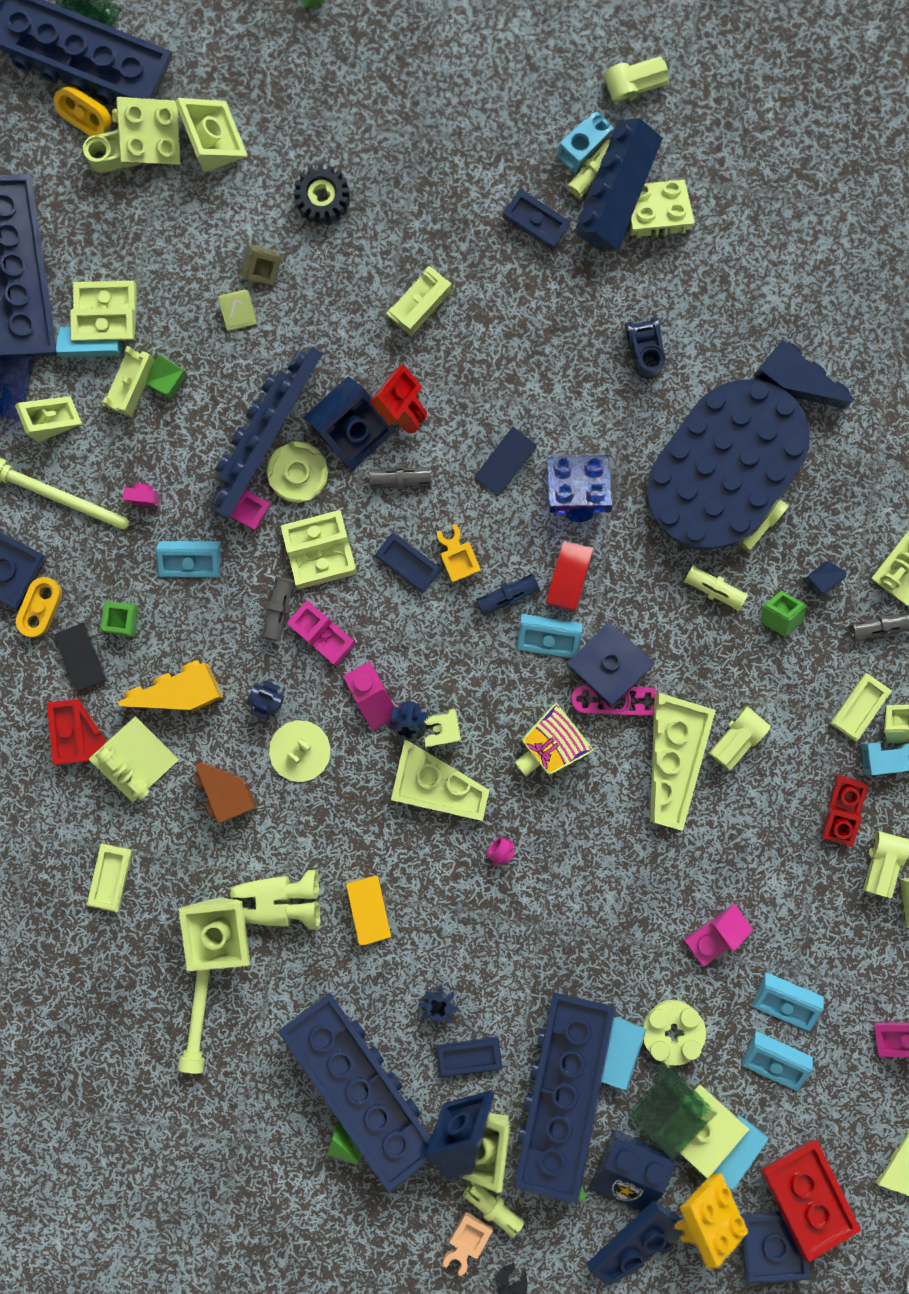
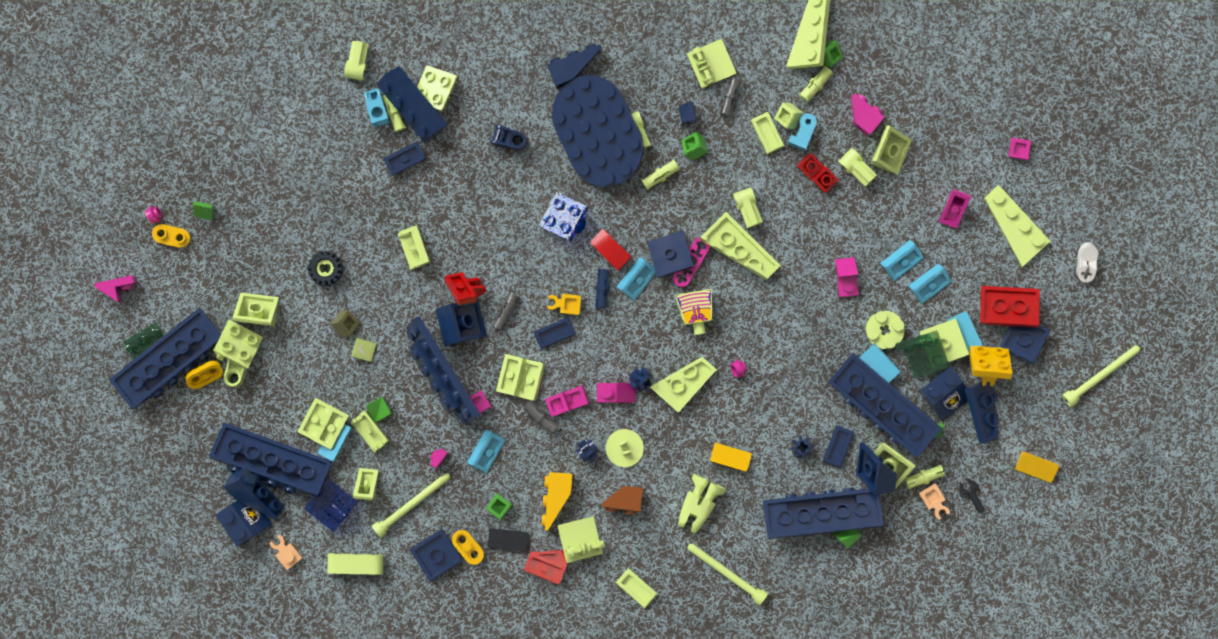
camera: 60 degrees left, 0 degrees up
(214, 934) = (698, 545): yellowish green slope -> none
(305, 479) = (471, 371): yellowish green tile -> none
(448, 726) = (656, 359): yellowish green hinge -> none
(505, 461) = (528, 249): dark blue slope -> none

